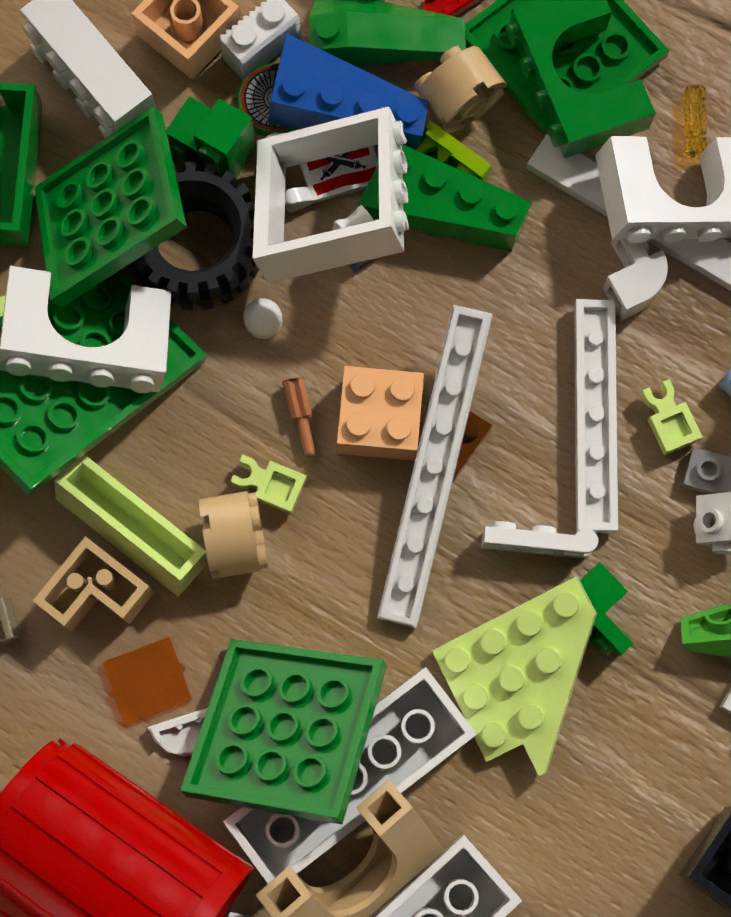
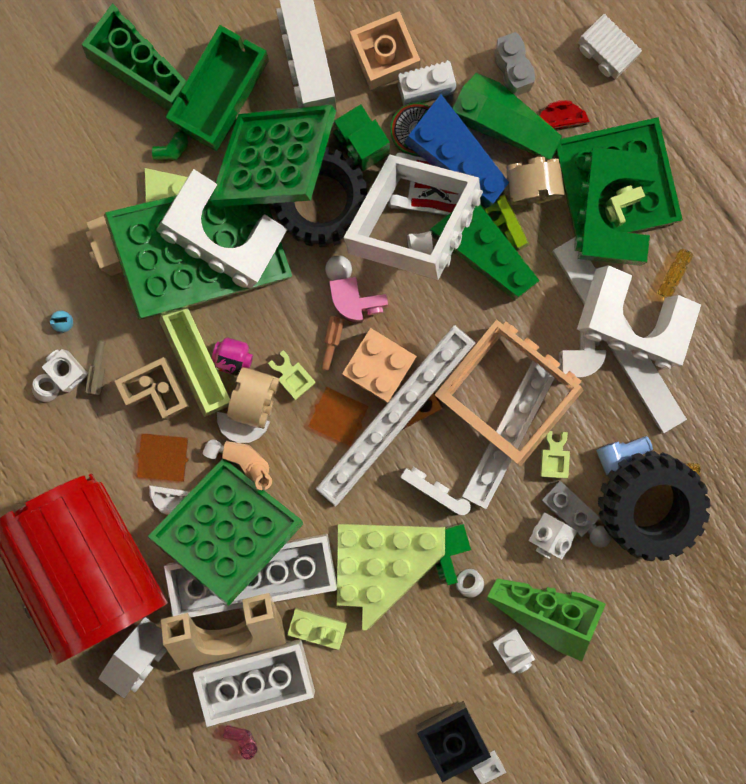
camera: 30 degrees right, 10 degrees up
(177, 495) = (231, 356): none -> dark pink head
(235, 591) = (238, 431): none -> white tile
(259, 620) = (249, 460): none -> light nougat arm
(304, 354) = (349, 305): none -> bright pink brick
(358, 508) = (338, 416): none -> clear orange piece
(476, 809) = (317, 628): none -> yellowish green plate
(566, 295) = (530, 349): none -> light nougat window
(583, 55) = (624, 198): none -> yellowish green bracket
(658, 650) = (476, 589): none -> white piece

